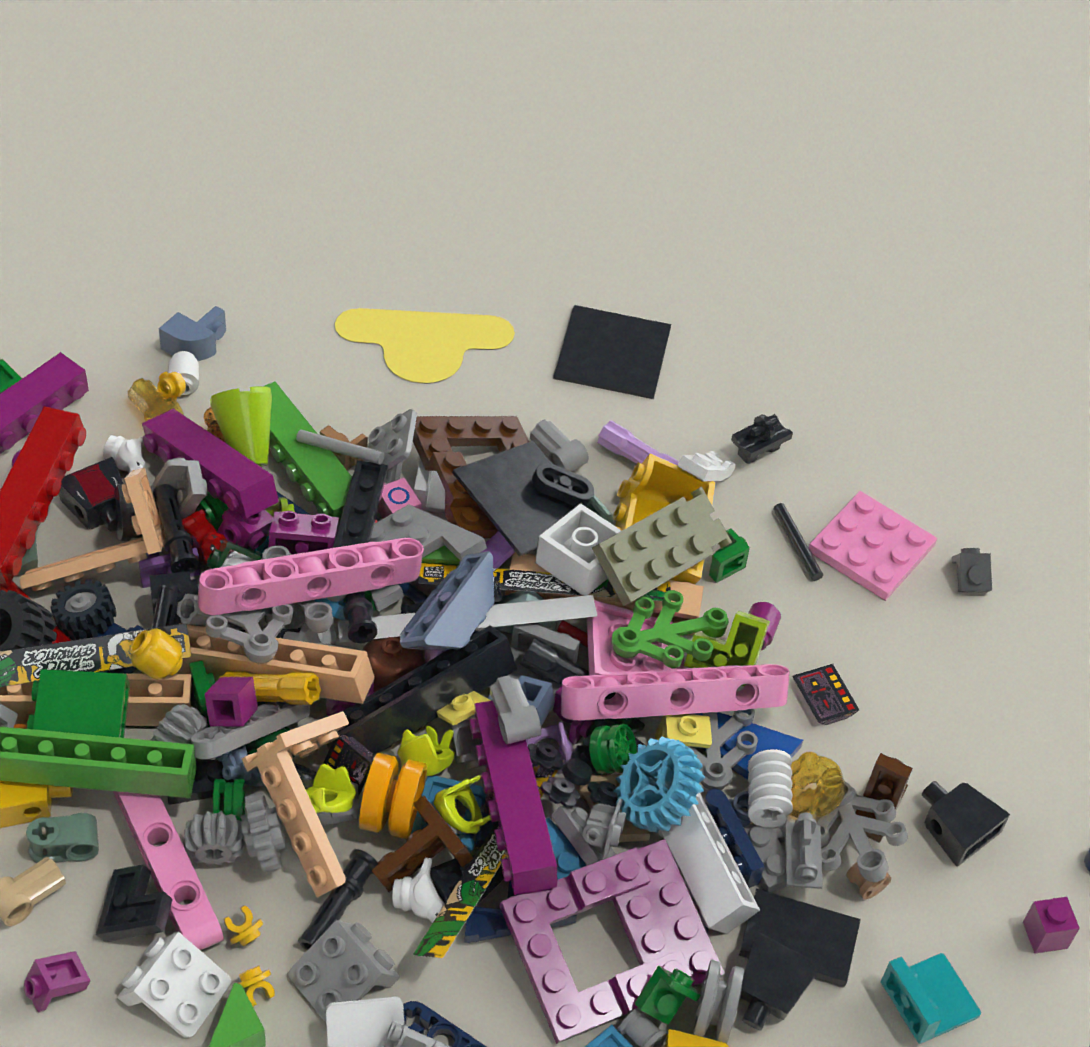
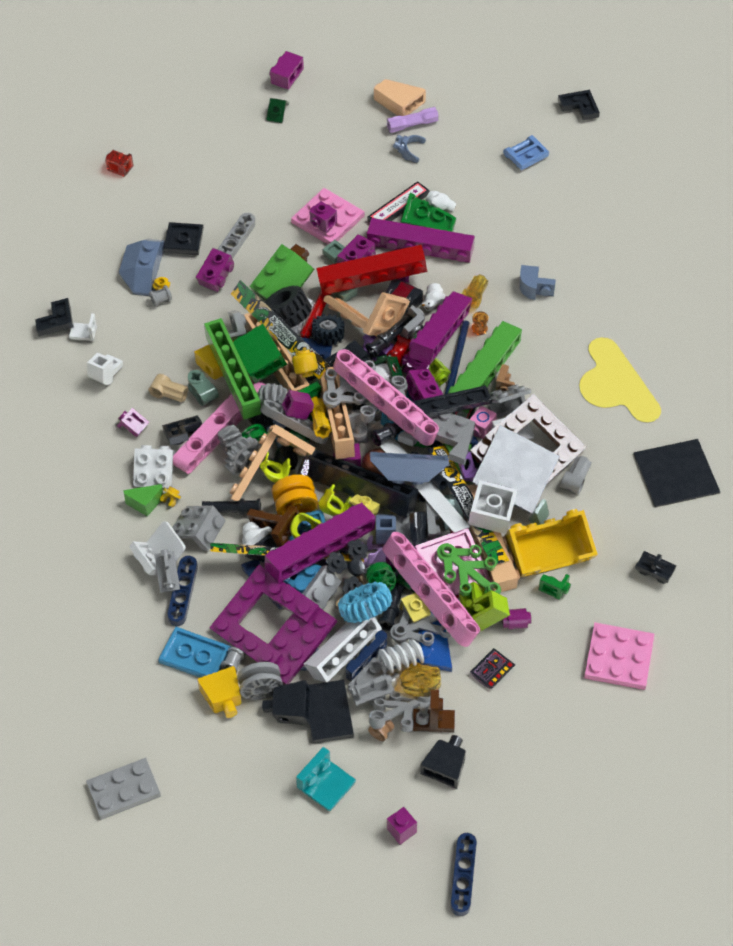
camera: 70 degrees right, 5 degrees up
(171, 385) = (487, 289): yellow plate -> none
(188, 367) = (505, 292): white brick -> none
(245, 420) = (476, 330): lime cone -> none
(247, 930) = (196, 479): yellow plate -> none
(340, 447) = (489, 374): light grey bar -> none
(515, 716) = (356, 519): light grey piece -> none
(562, 484) = (535, 482): black plate -> none
(604, 826) = (330, 591): light grey hinge -> none
(624, 443) = (601, 516): lavender axle -> none
(660, 546) = (519, 540): hinge -> none
(666, 993) = (250, 654): green bracket -> none
(707, 467) = (606, 546): white hinge -> none
(798, 542) = (595, 617): black bar -> none
(973, 570) = (633, 712): dark grey bracket -> none

